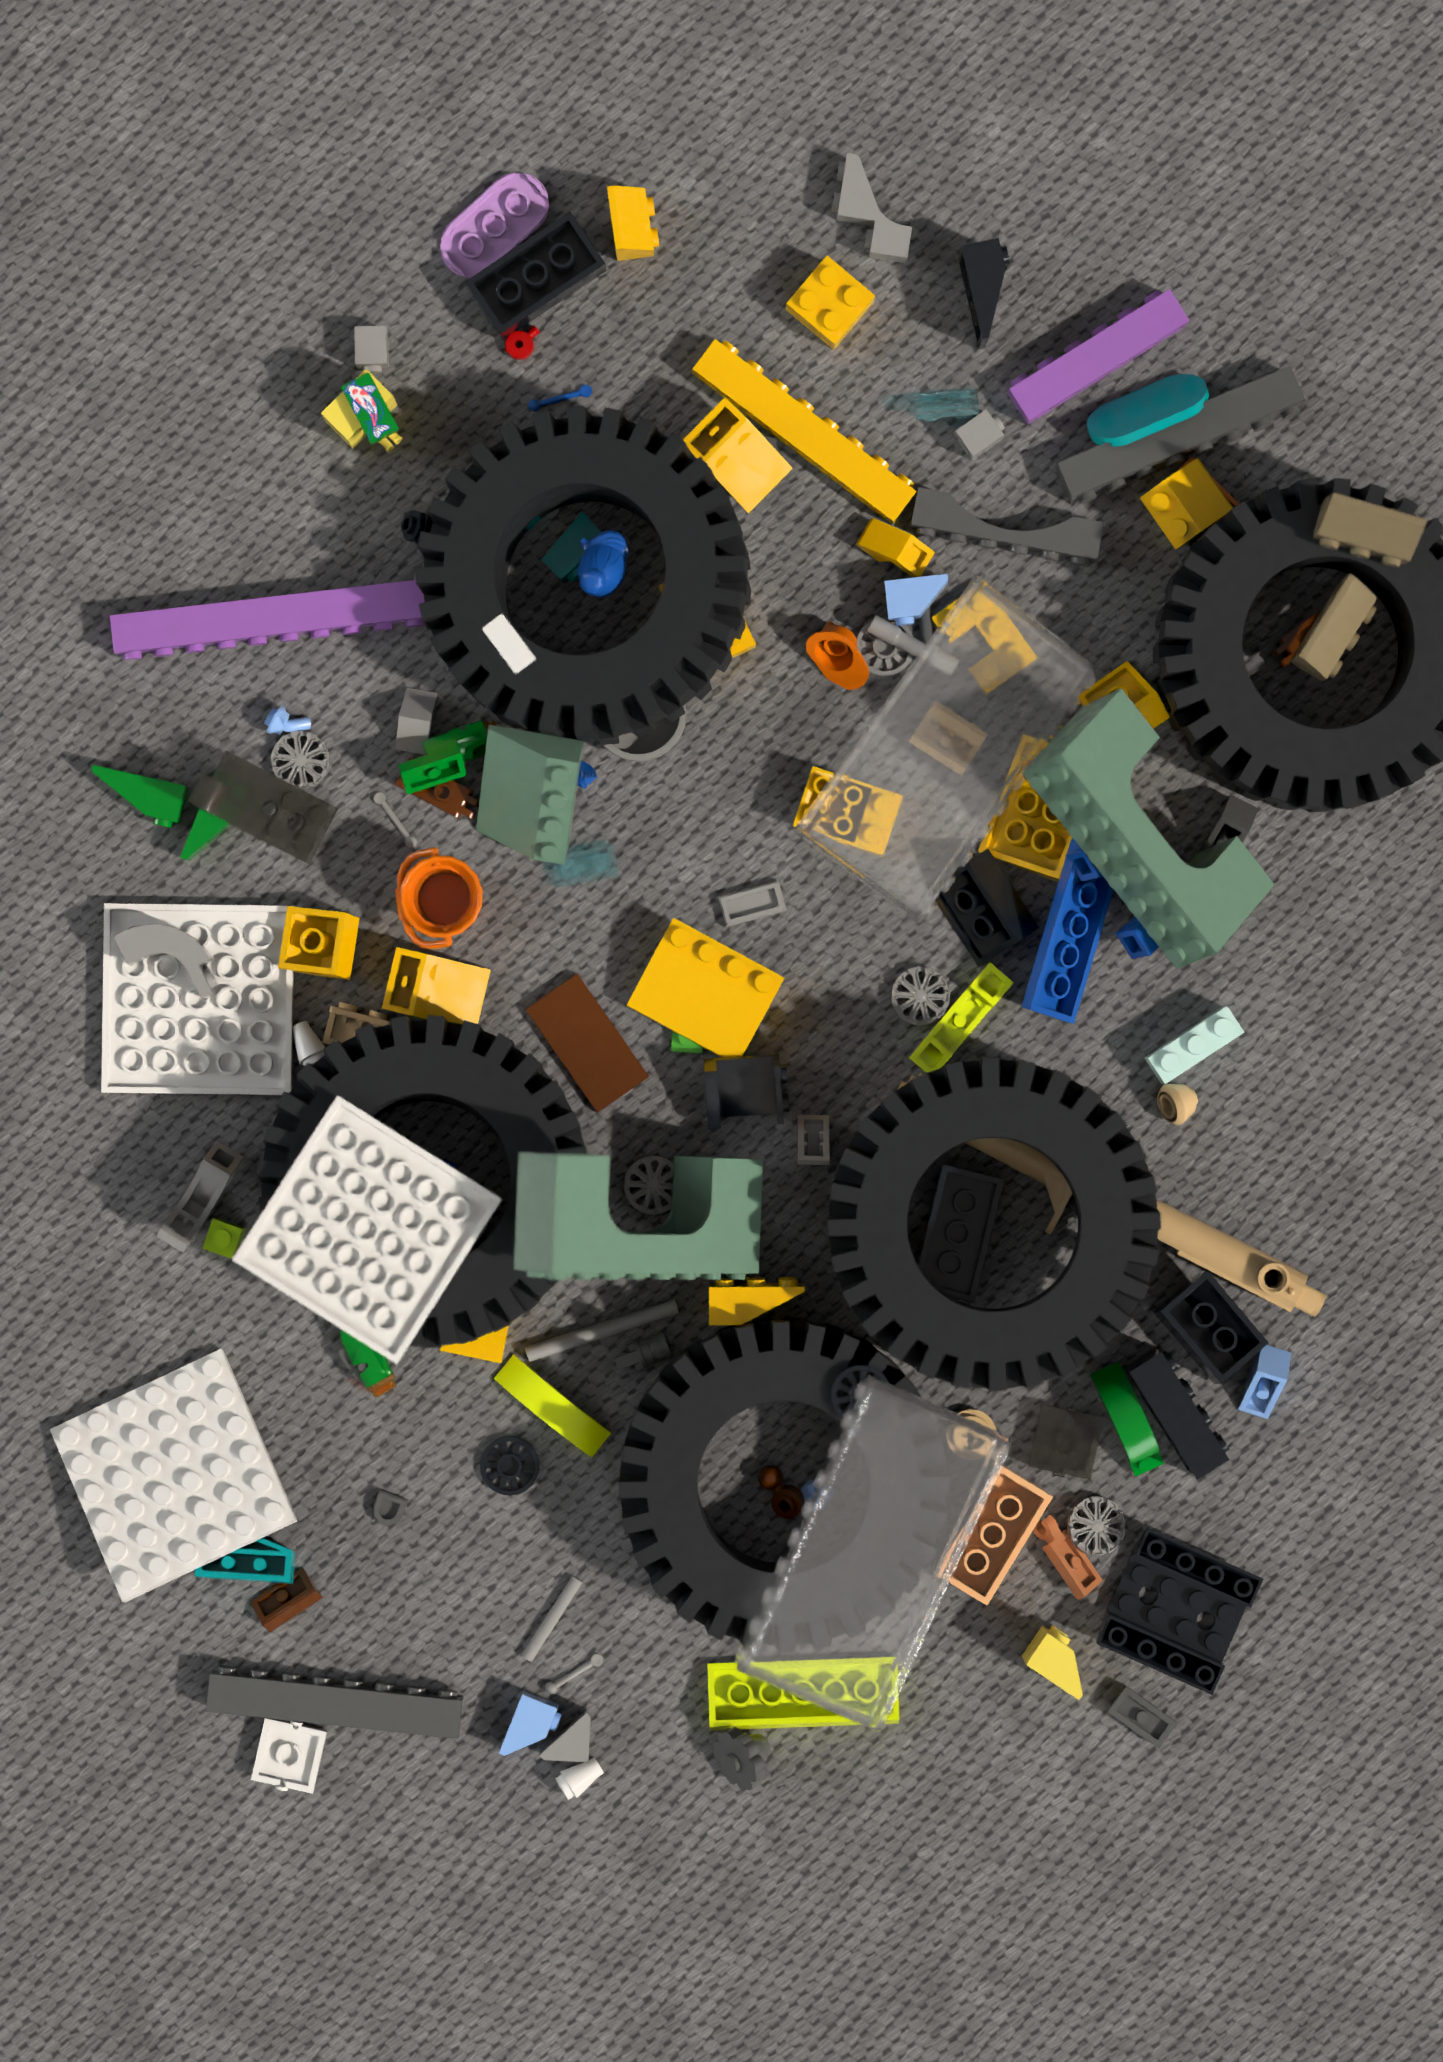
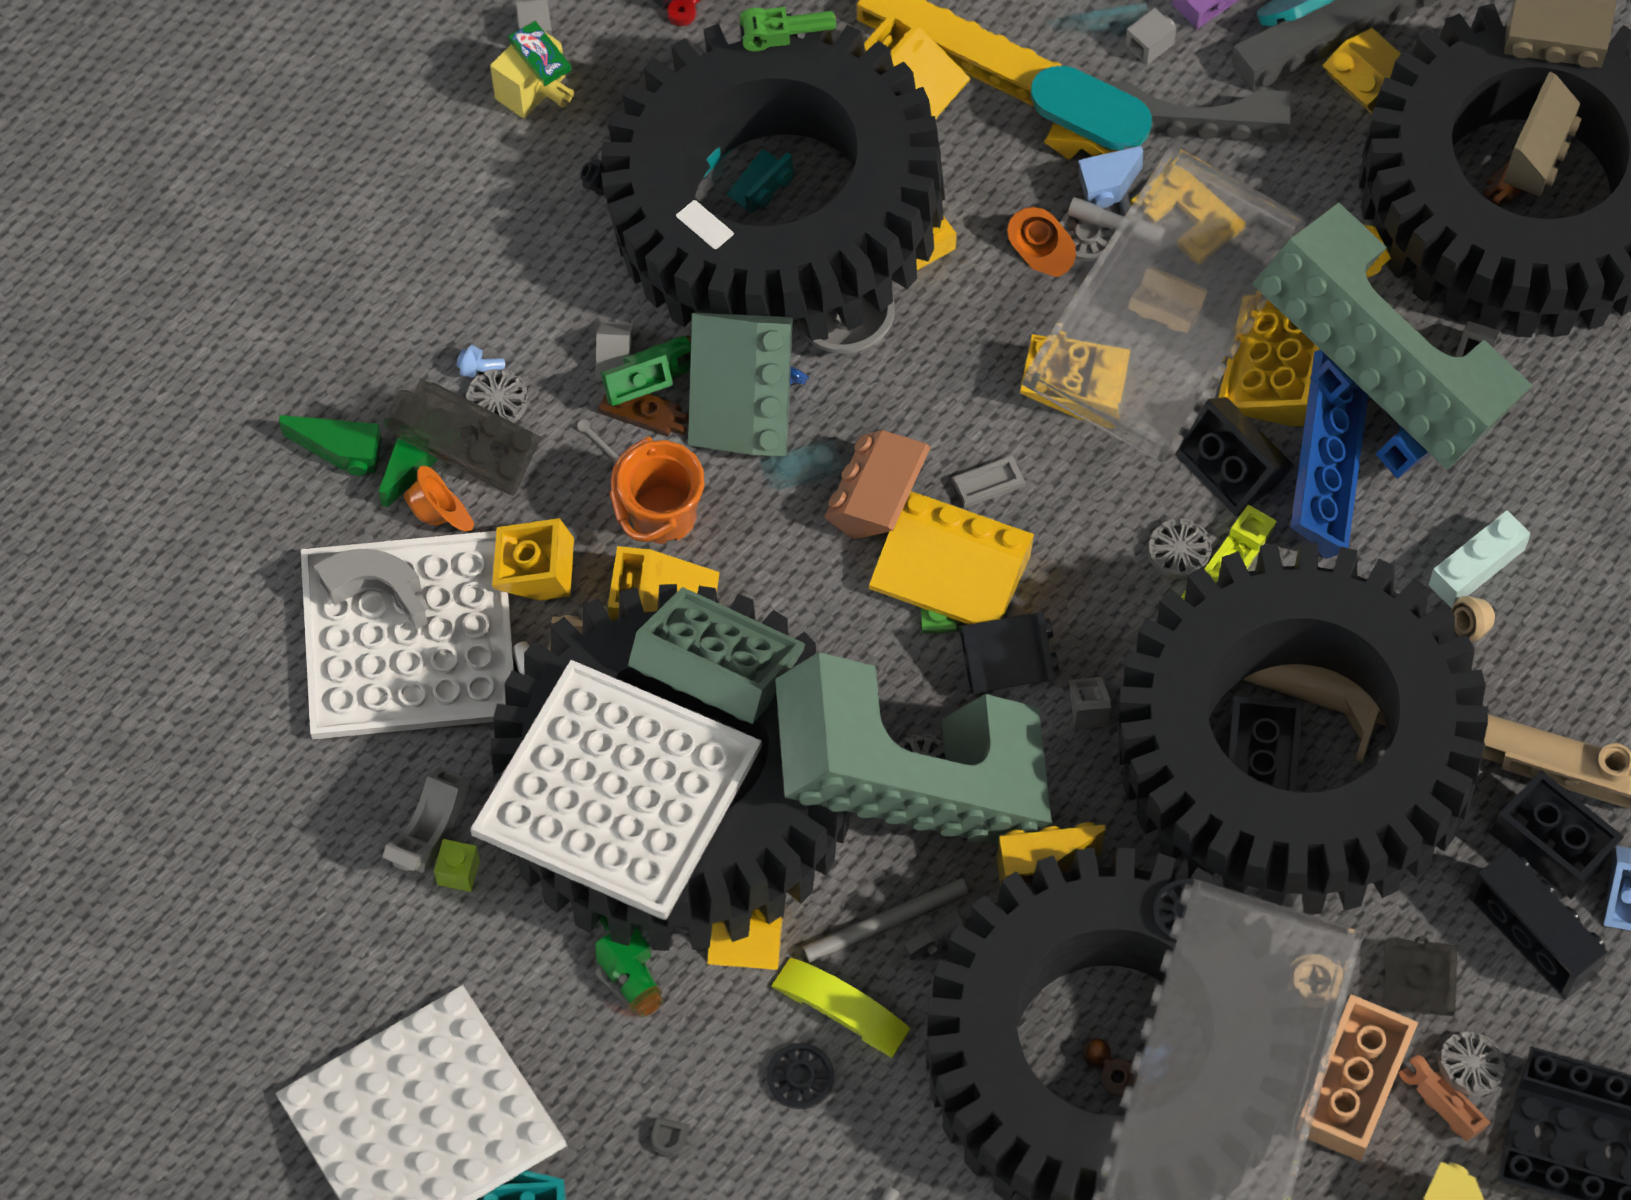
camera: 10 degrees left, 25 degrees down
(236, 869) = (435, 502): none -> orange piece
(266, 618) = (454, 269): medium lavender brick -> none
(471, 1101) = (714, 654): none -> sand green slope
(587, 1043) = (831, 622): reddish brown tile -> none
(601, 430) = (775, 26): none -> bright green connector
(603, 564) = (791, 161): blue hair -> none
(646, 906) = (876, 484): none -> nougat slope
(904, 523) = (1091, 107): none -> teal tile
(1127, 1418) = (1490, 938): green arch -> none

